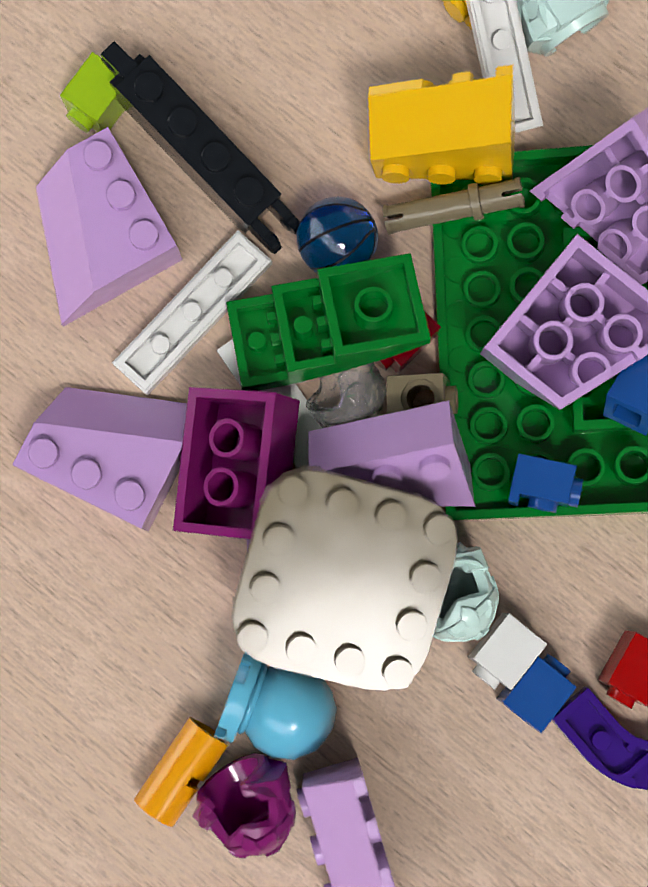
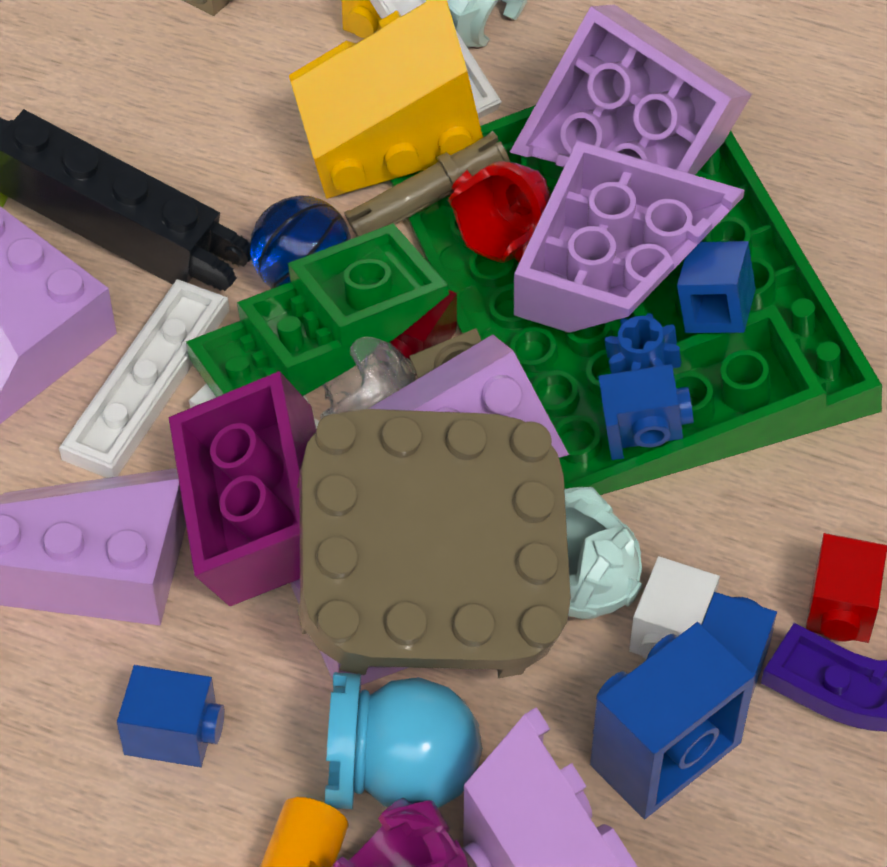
camera: 15 degrees left, 30 degrees down
(131, 622) = (169, 716): none -> blue brick
(470, 750) = (670, 718): none -> blue brick
(502, 264) = (499, 209): none -> red cap
(558, 418) = (642, 345): none -> blue gear

